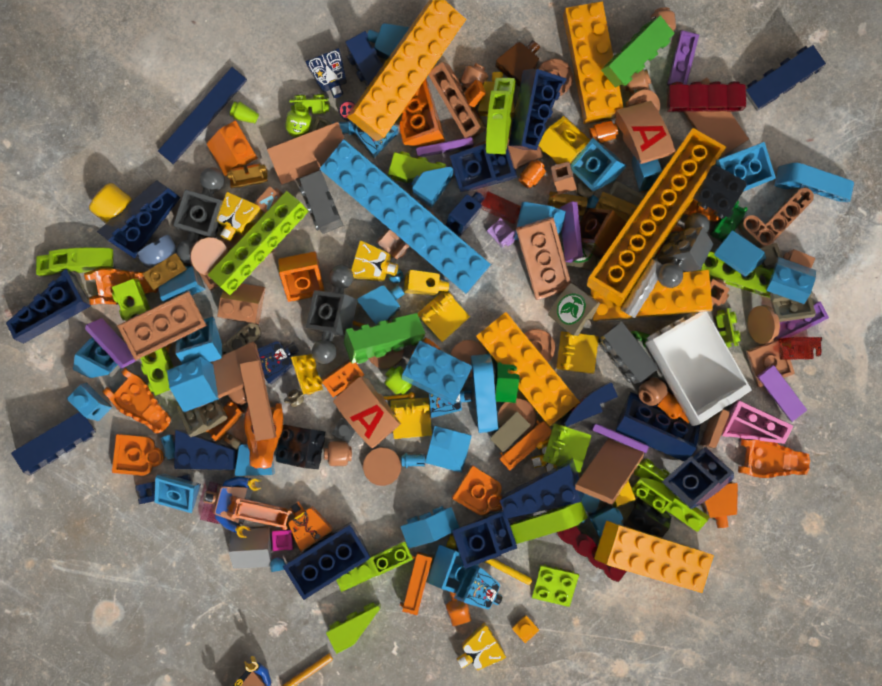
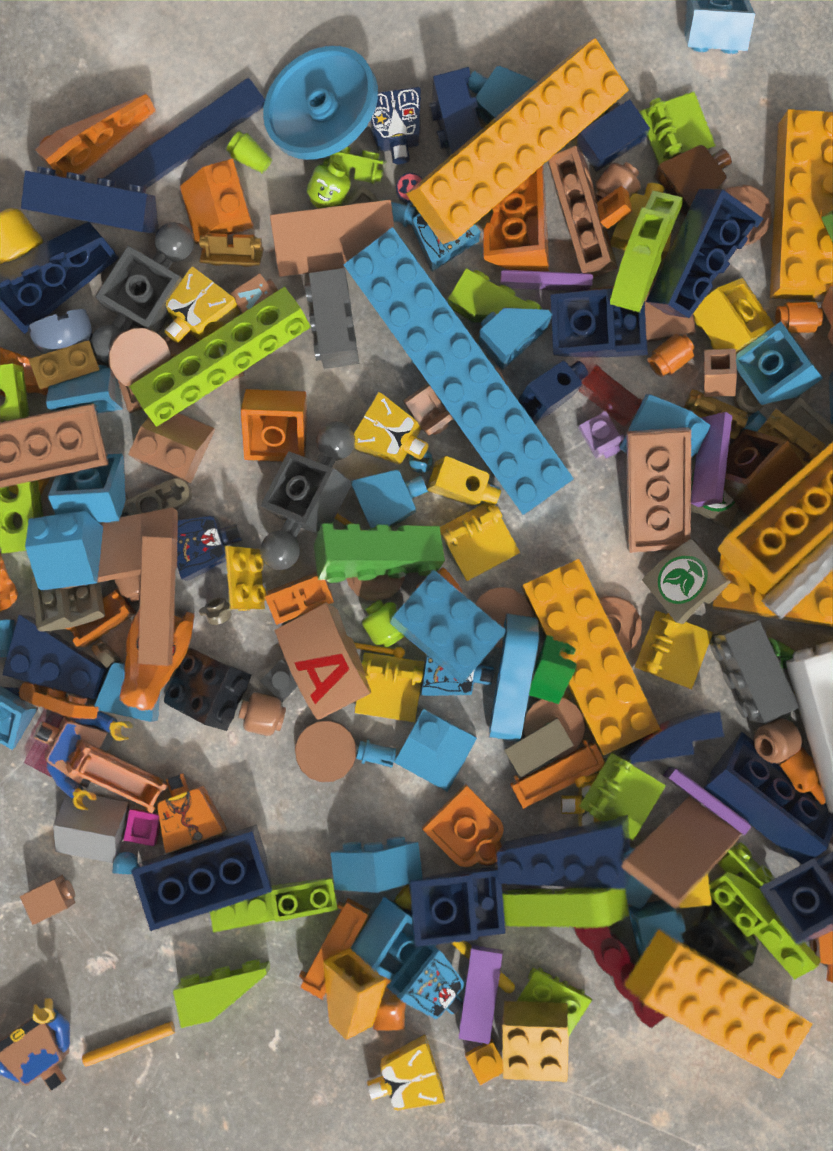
camera: 15 degrees right, 0 degrees up
(140, 132) = (86, 141): none -> orange wedge
(155, 168) = (88, 201): none -> dark blue slope
(211, 476) = (56, 701): none -> orange hinge
(236, 597) = (48, 899): none -> nougat brick
(280, 72) = (320, 102): none -> dark azure dish
(434, 606) = (352, 993): none -> light orange slope
(463, 48) = (612, 134): none -> dark blue brick
(501, 33) = (676, 126): none -> lime hinge
(511, 588) = (480, 994): none -> medium lavender tile
(551, 607) = (535, 1041): none -> brick

